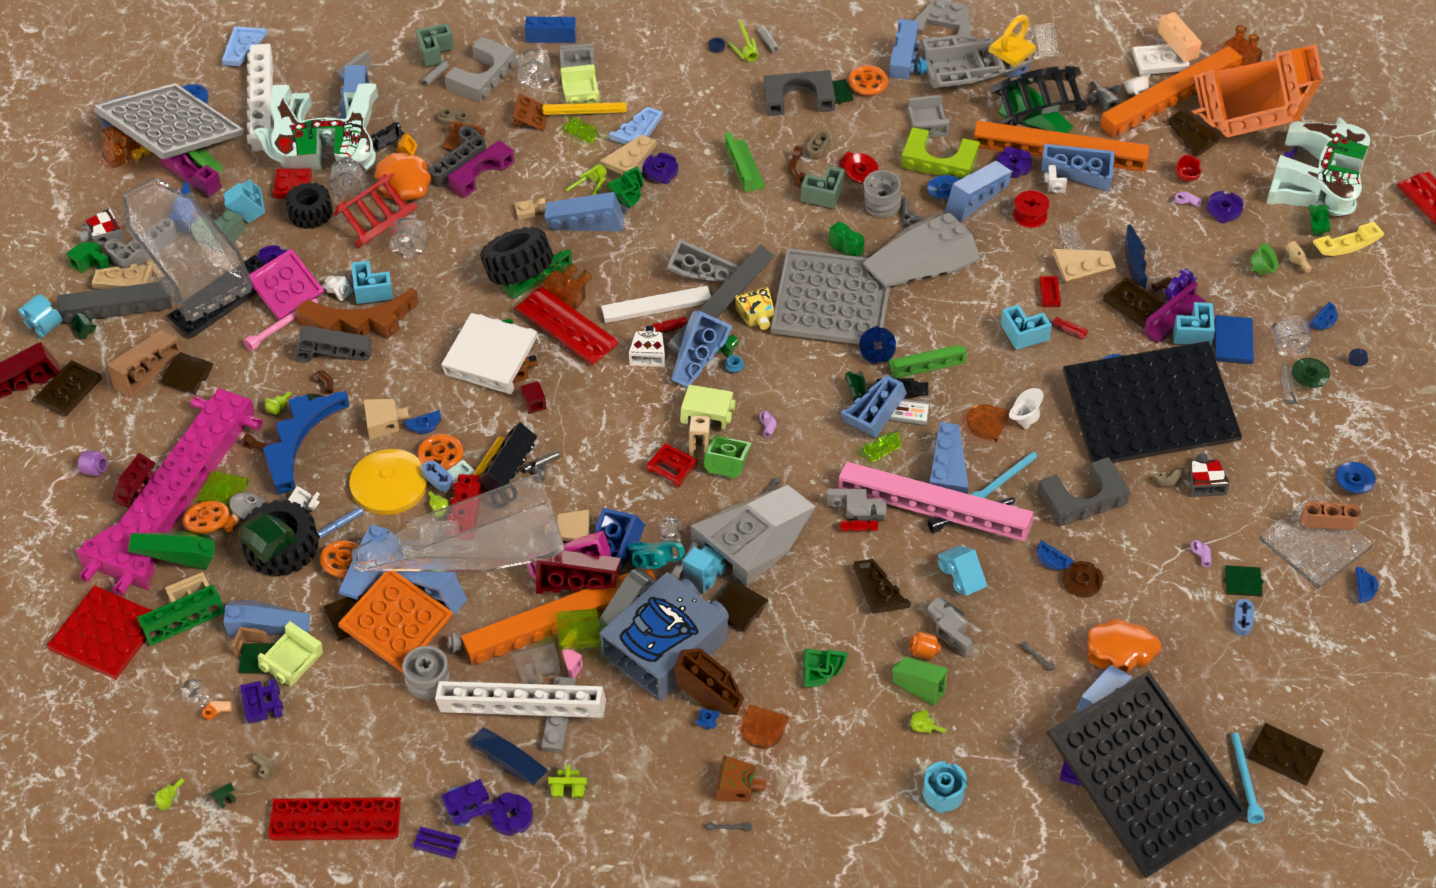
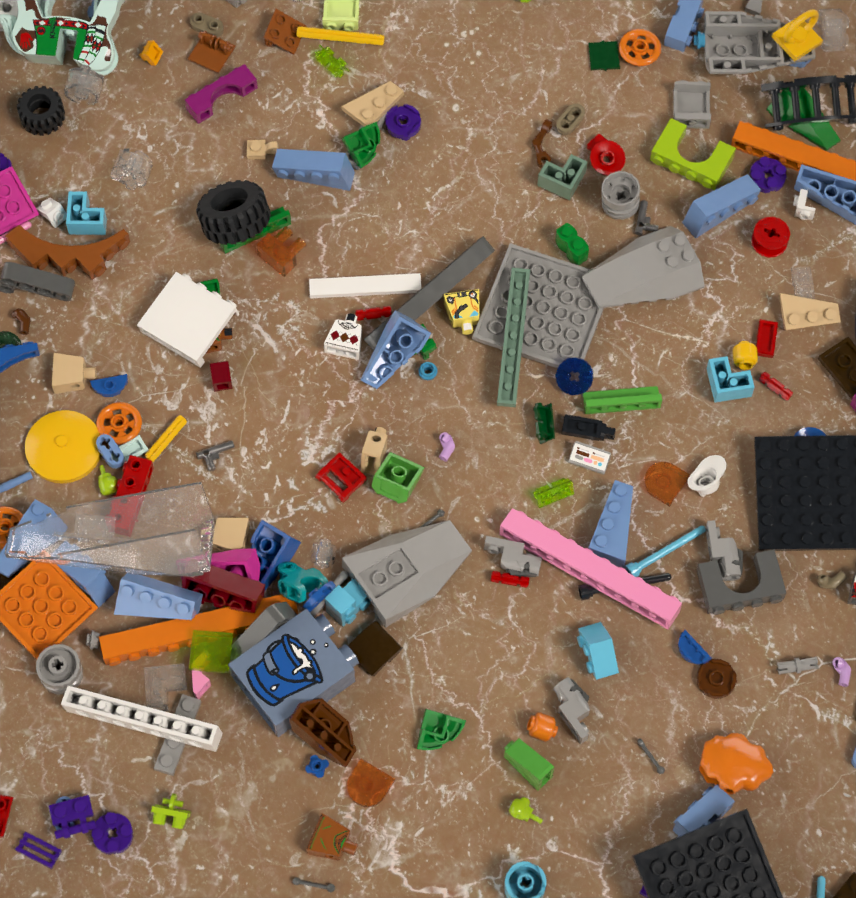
camera: 10 degrees right, 15 degrees up
(287, 179) = (29, 74): red plate -> none
(377, 226) = (119, 138): red fence -> none
(384, 138) = (133, 38): black hinge -> none
(410, 176) = (139, 92): orange piece -> none
(470, 146) = (197, 76): dark grey beam -> none
(508, 457) = (180, 447): black hinge -> none
(508, 591) = (154, 598): none -> medium blue wedge
(509, 756) = (120, 773): dark blue slope -> none
(566, 325) = (270, 296): red plate -> none
(595, 174) = (336, 118): lime plant -> none
(642, 124) = (390, 68): light blue wing -> none
(675, 558) = (317, 596): none -> blue plate
(698, 263) = (415, 248): light grey wedge -> none
(708, 402) = (390, 417): yellowish green panel -> none
(743, 163) = (489, 130): bright green panel -> none
(811, 321) = (513, 337): none -> sand green plate
(815, 82) = (545, 40): dark grey arch -> none
(876, 407) = (555, 450): medium blue wedge -> none
(877, 588) = (513, 657): dark brown wing -> none
(941, 186) = (685, 193): blue dish -> none
(1034, 304) = (745, 355): none -> yellow head
(1061, 465) = (725, 551): none -> light grey plate
(1158, 554) = (797, 665): none -> light grey pin

